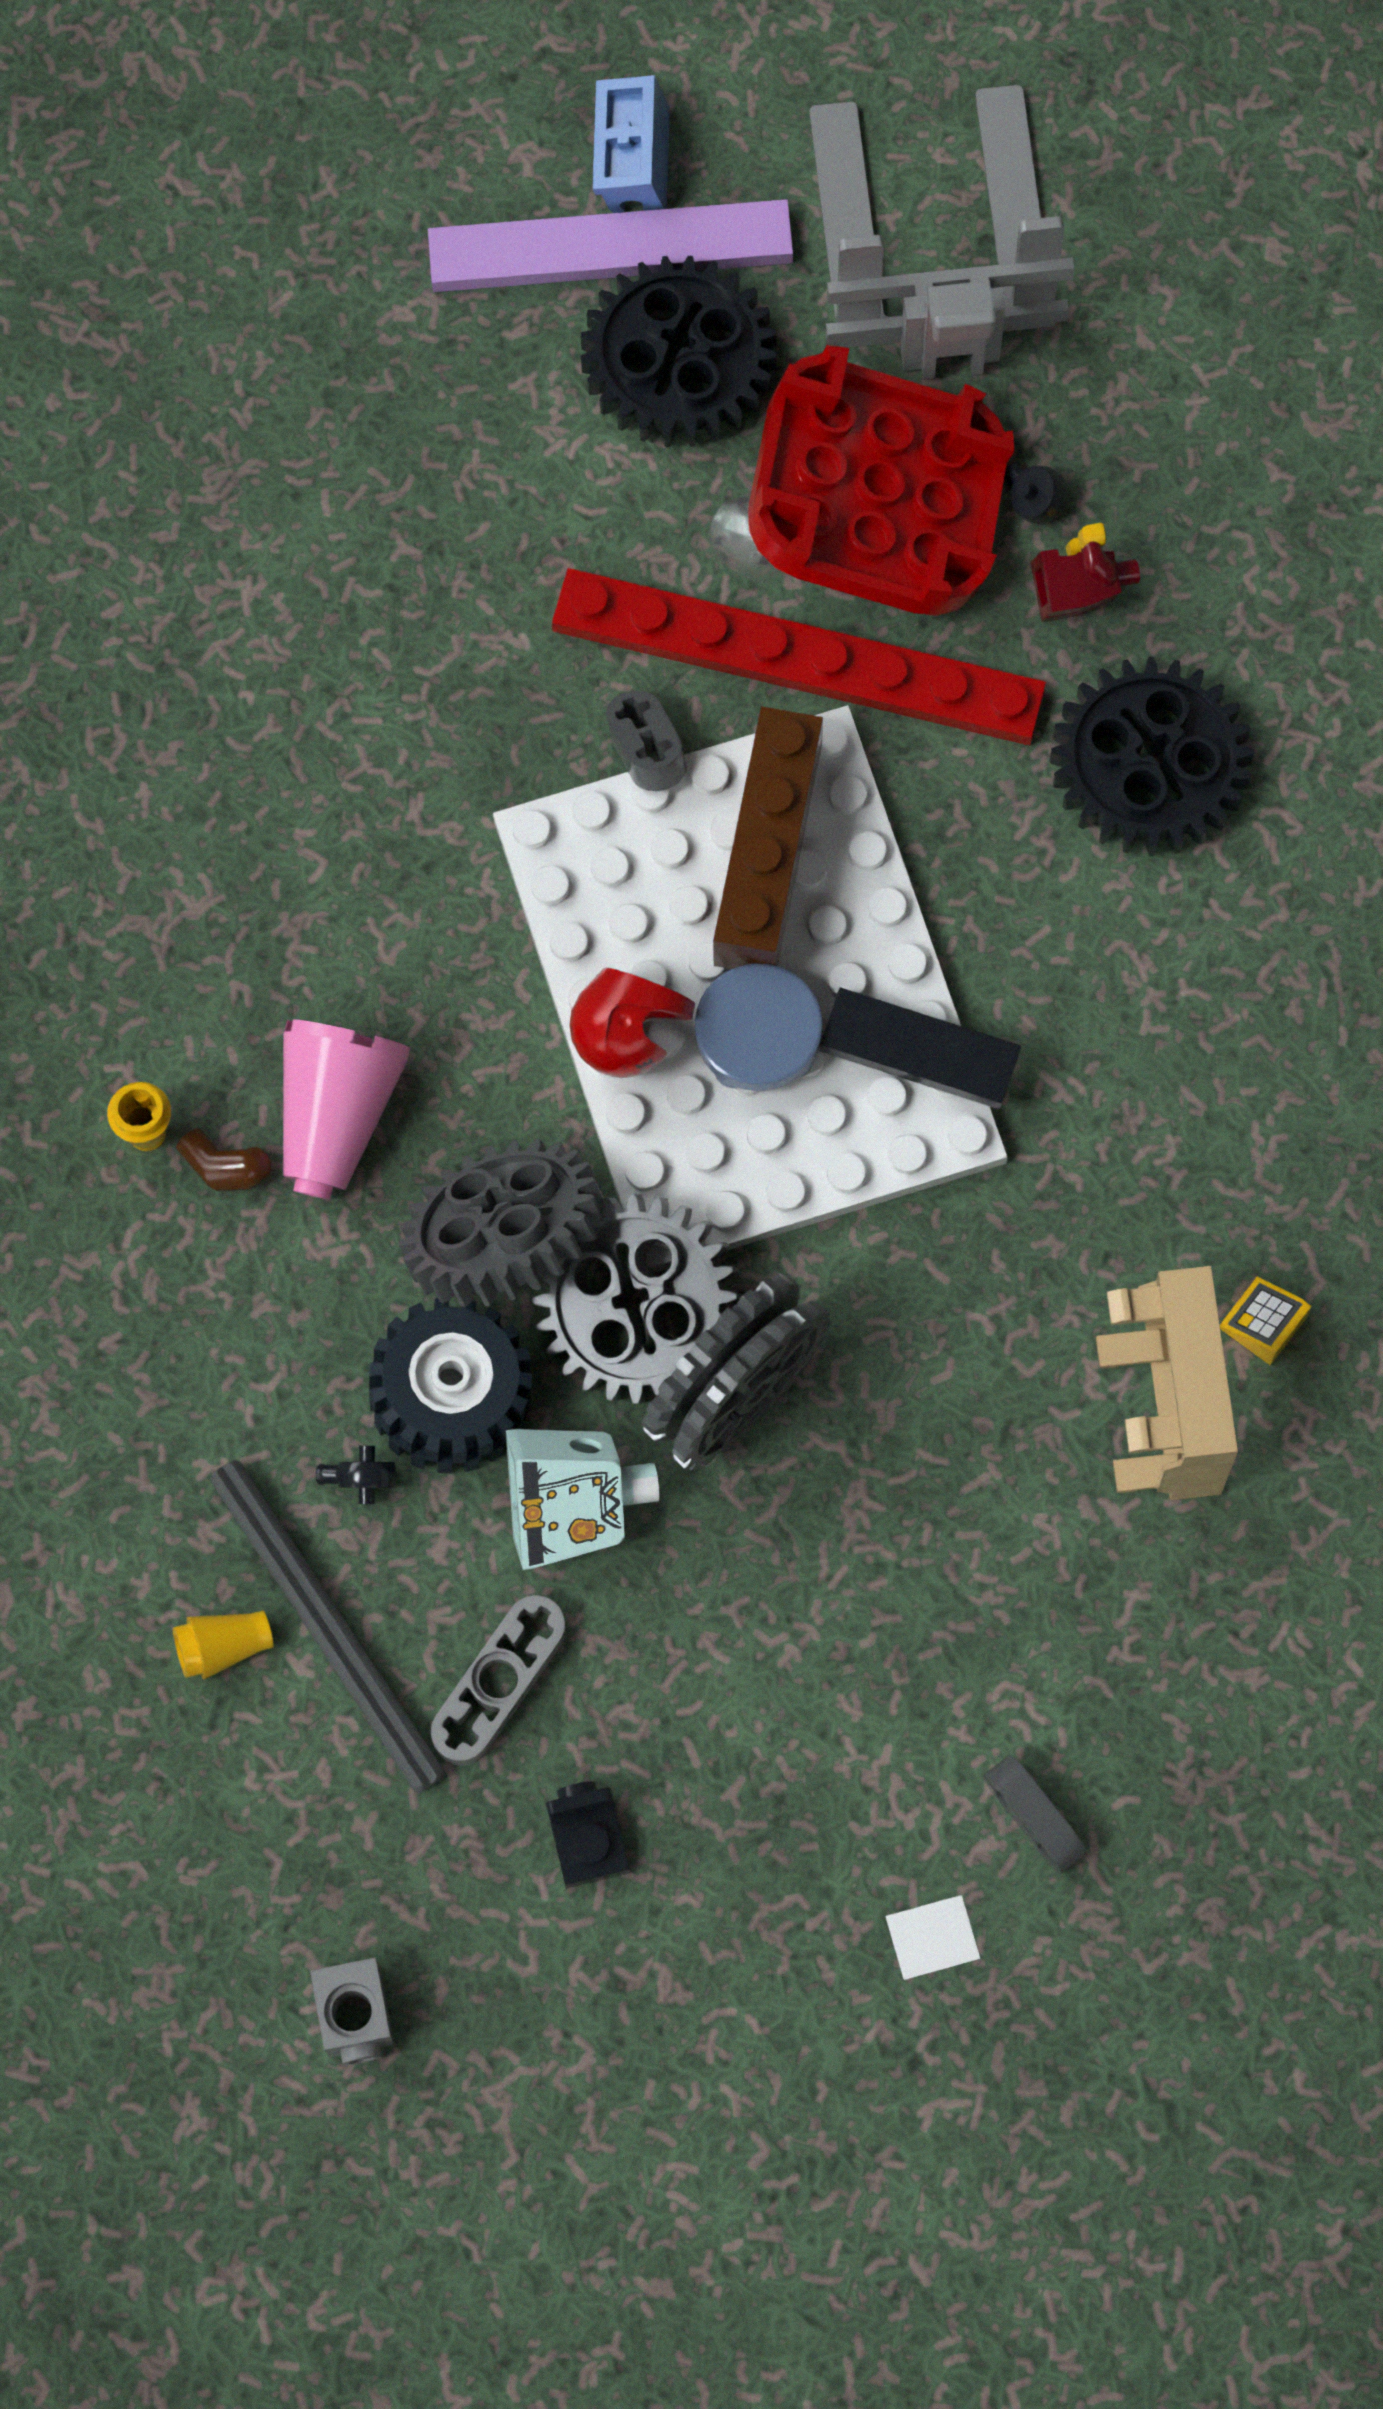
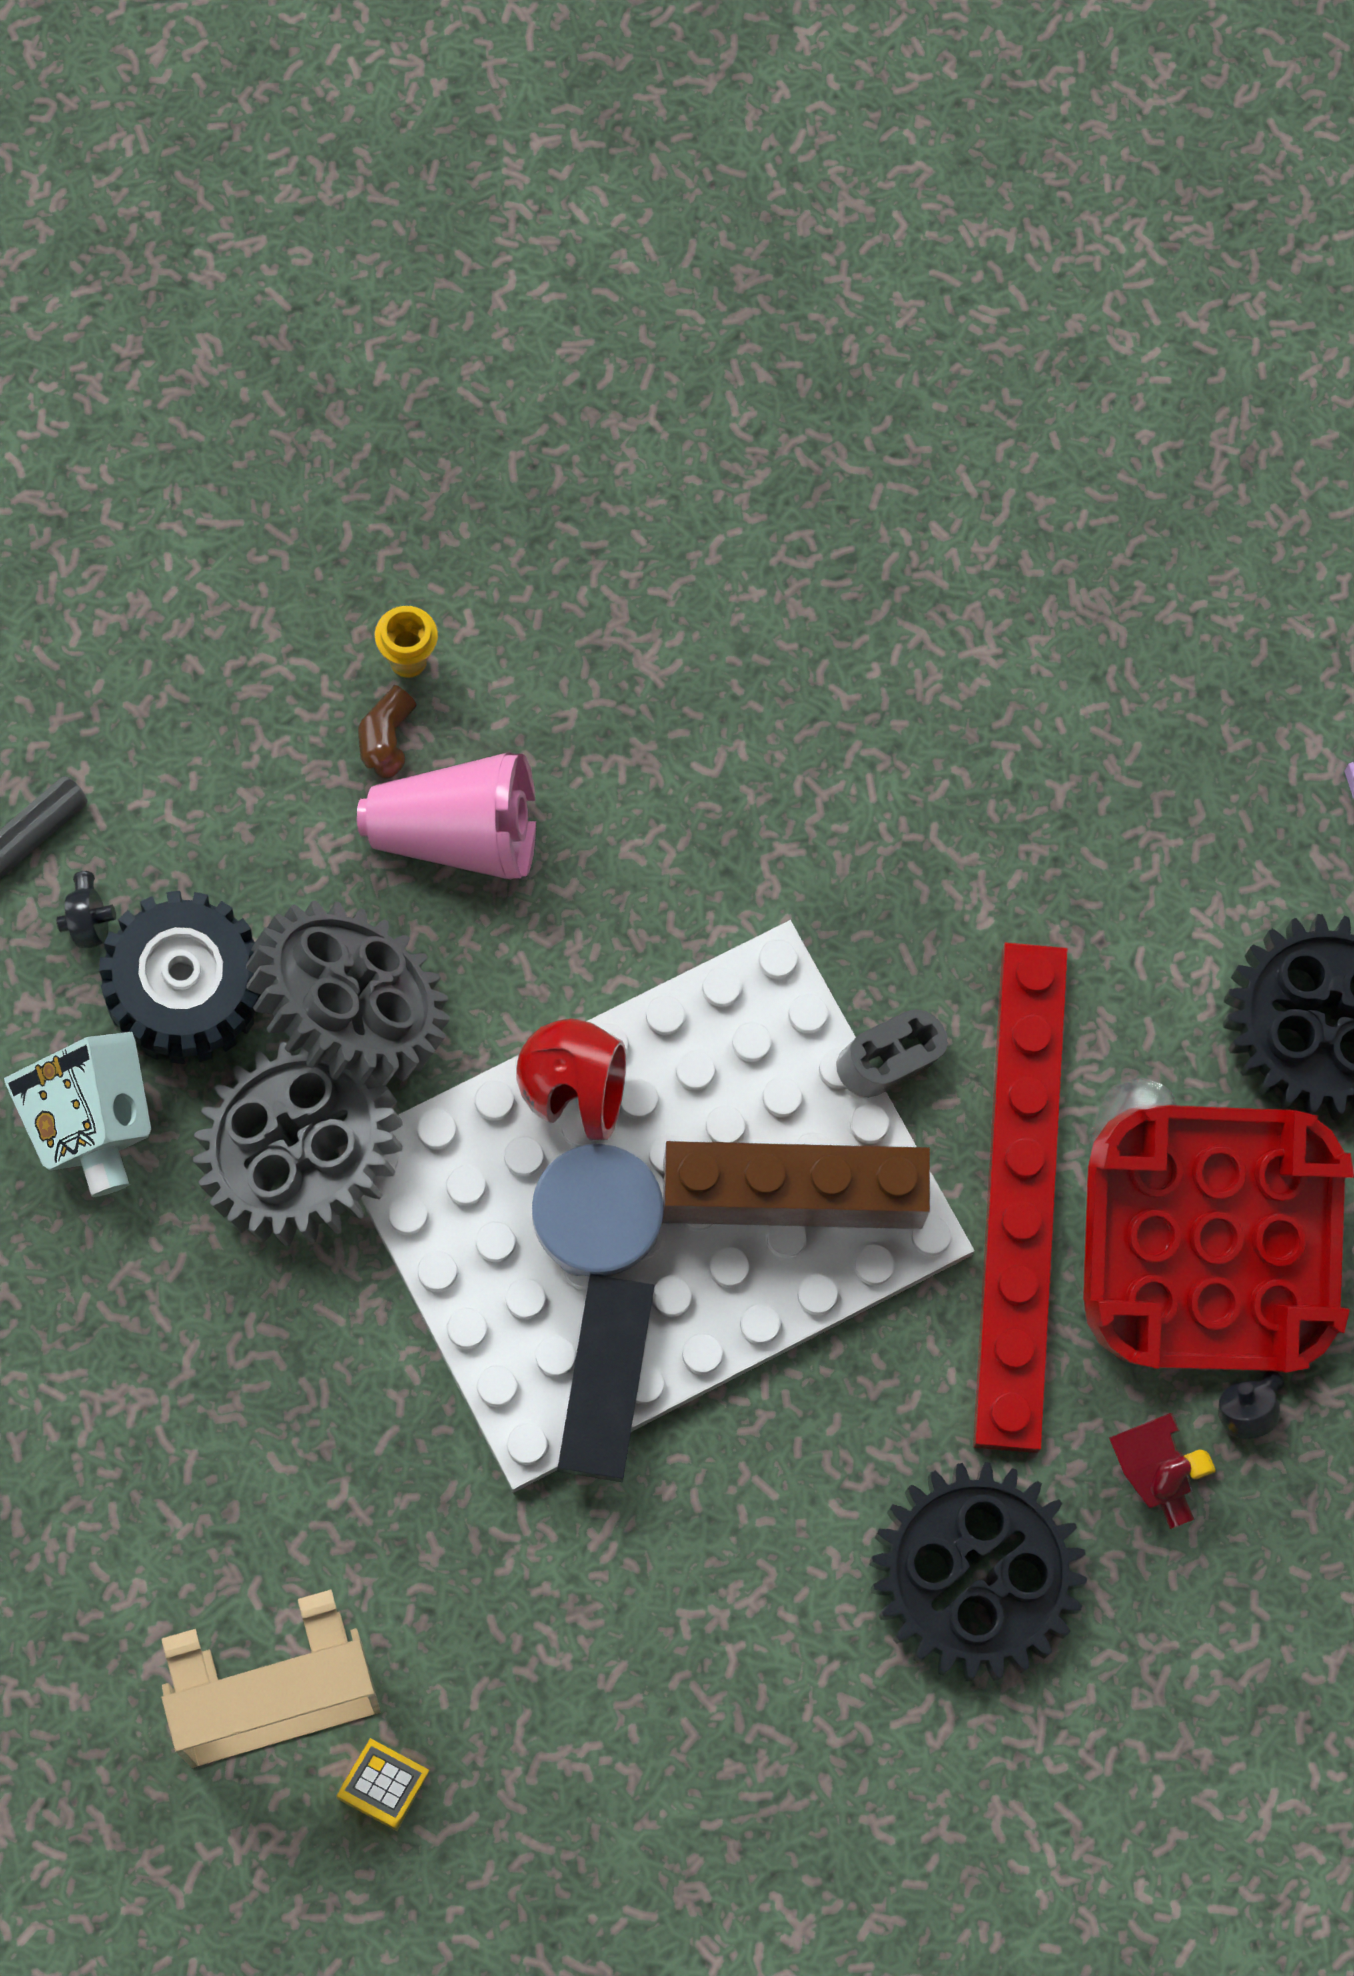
camera: 70 degrees right, 0 degrees up
(736, 1371) = (217, 1240): dark grey piece -> none

